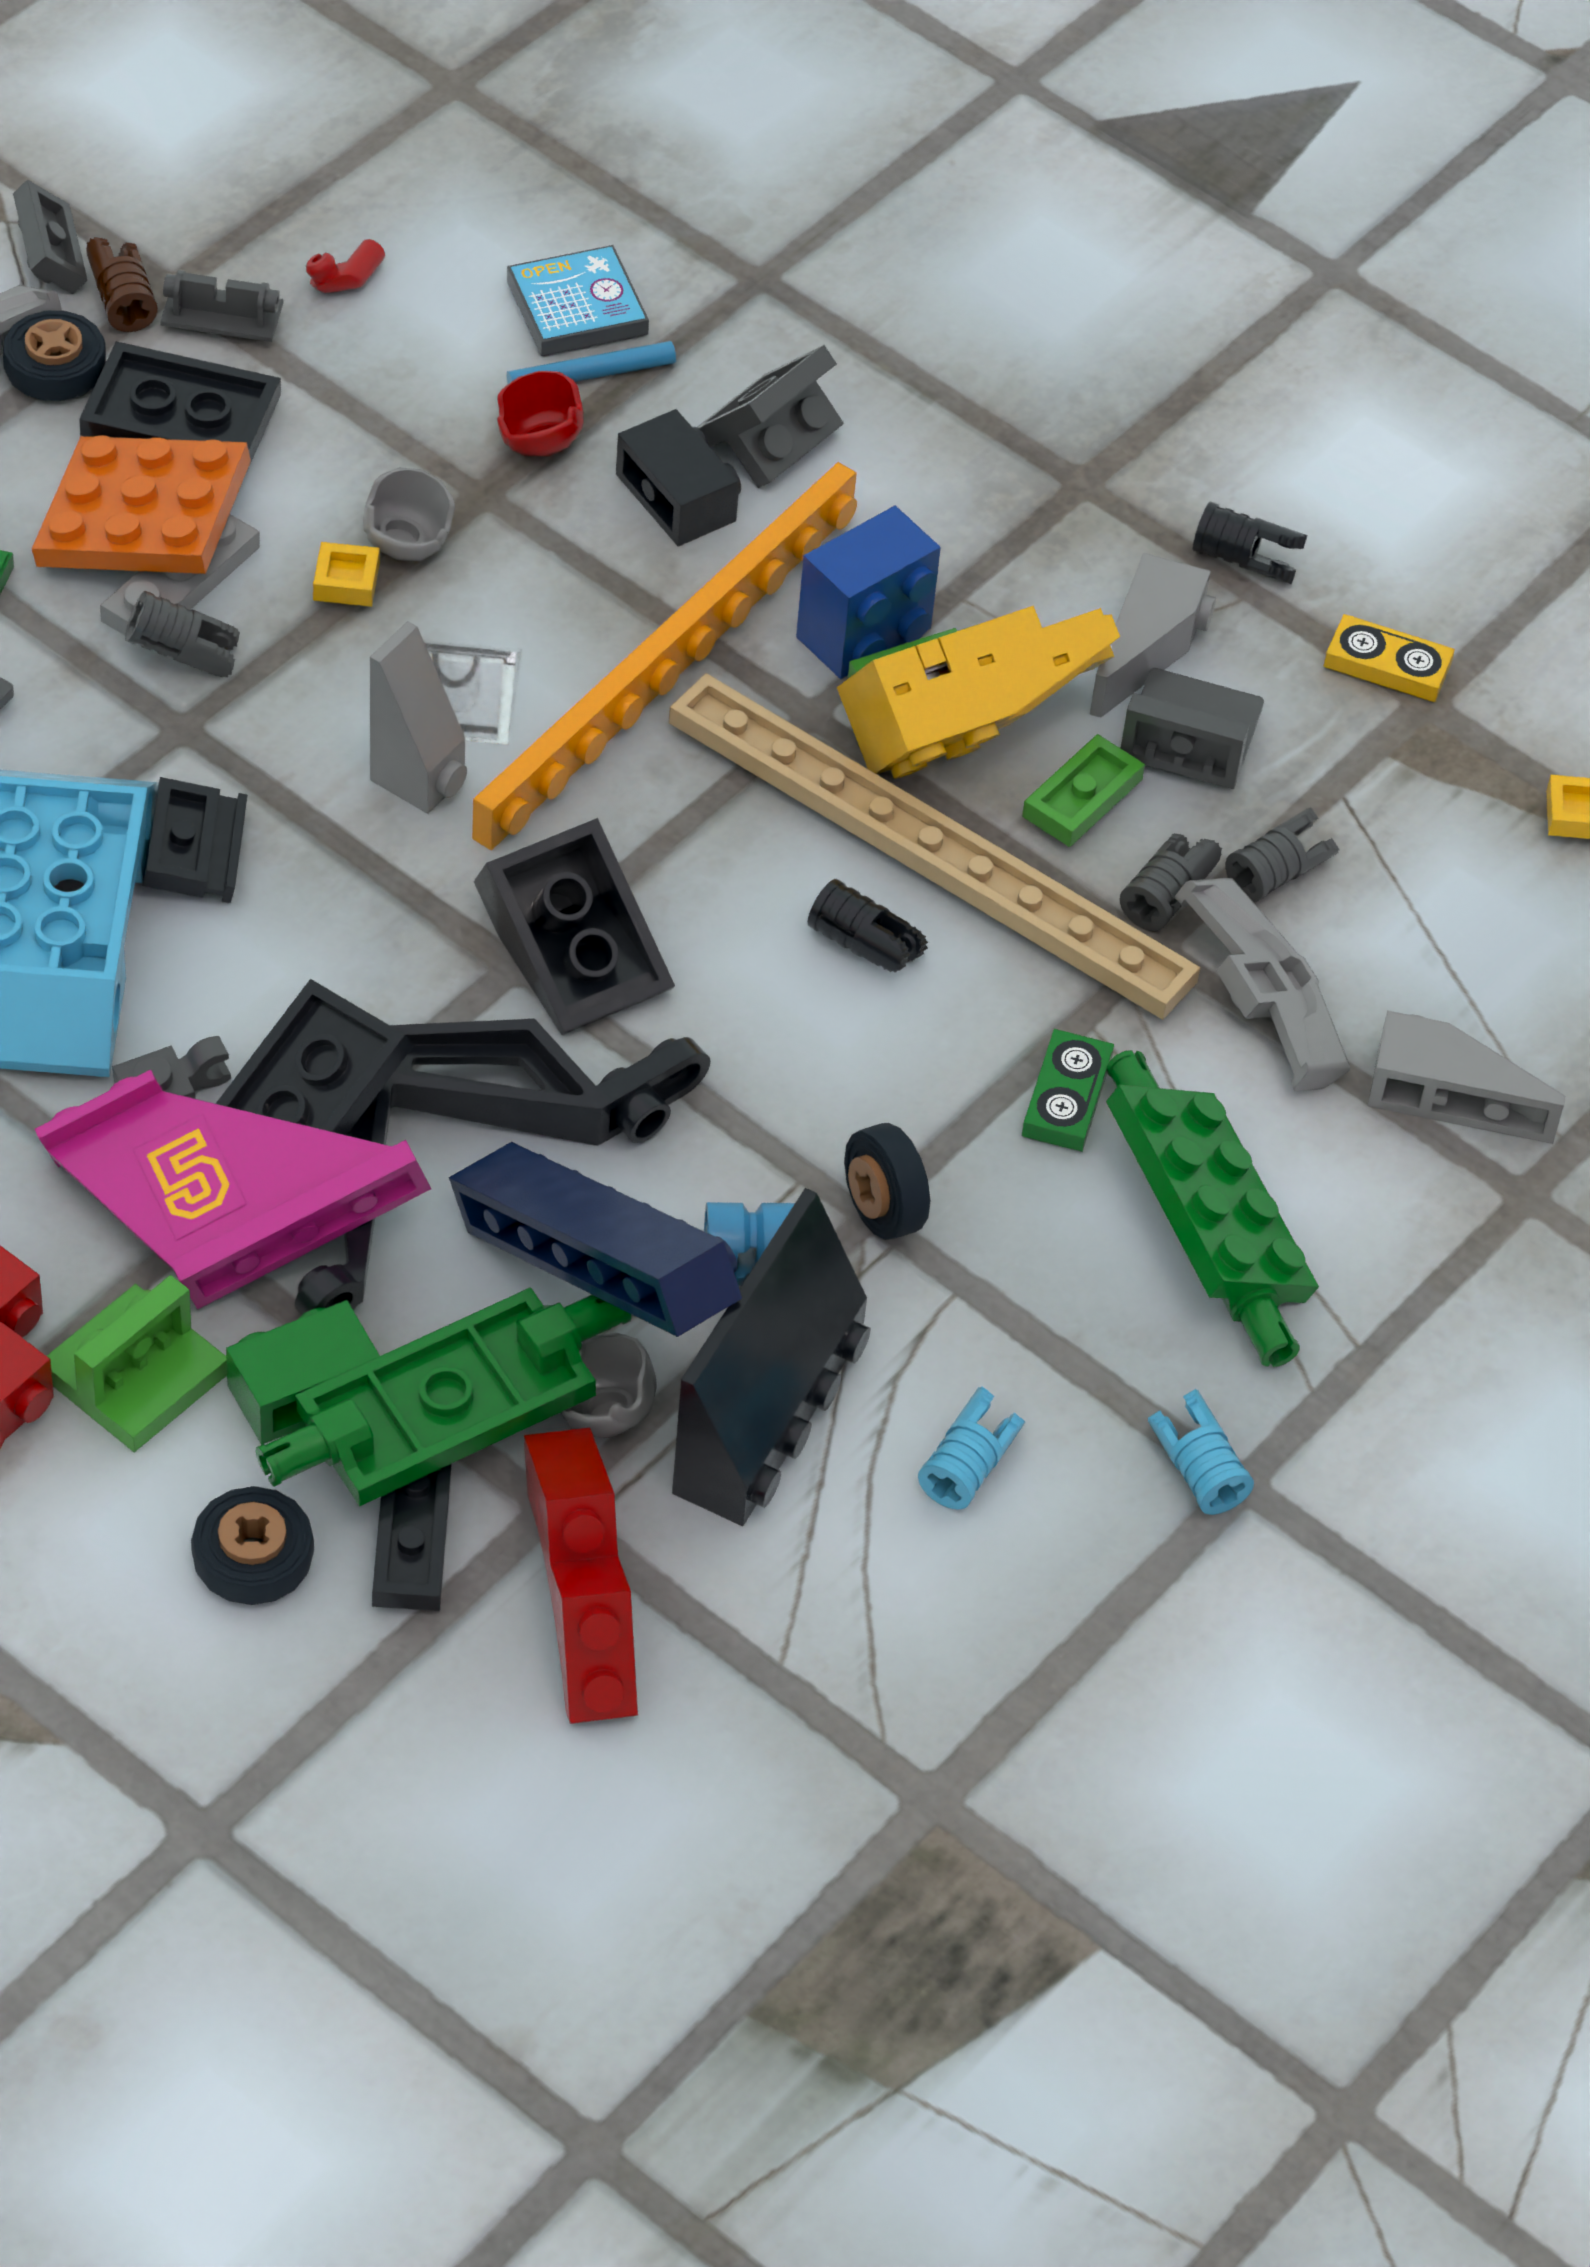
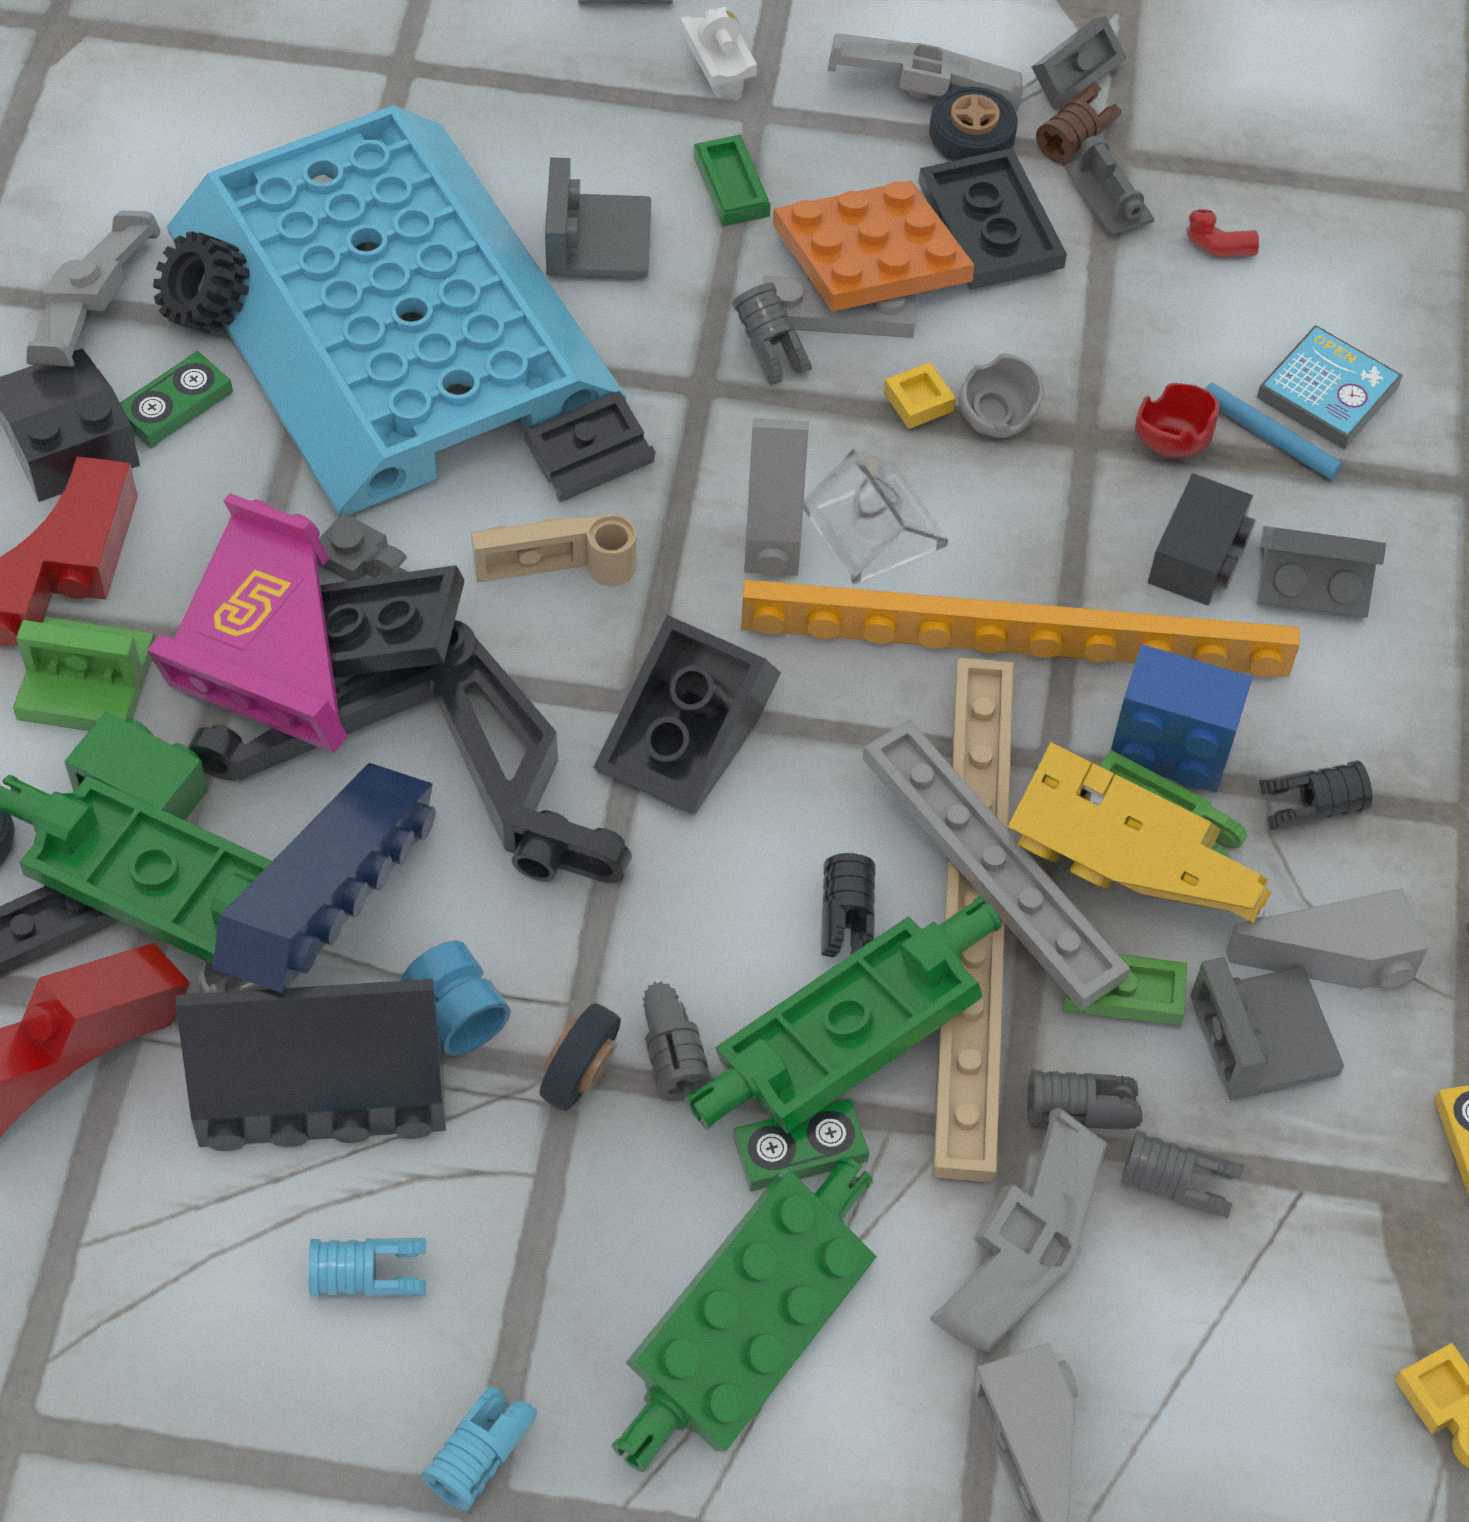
camera: 60 degrees right, 5 degrees up
(328, 894) = (599, 542): none -> tan plate
(912, 793) = (996, 865): none -> light grey plate
(929, 1122) = (673, 1044): none -> dark grey hinge
(989, 979) = (848, 1021): none -> green plate
(998, 555) = (1321, 792): none -> black hinge

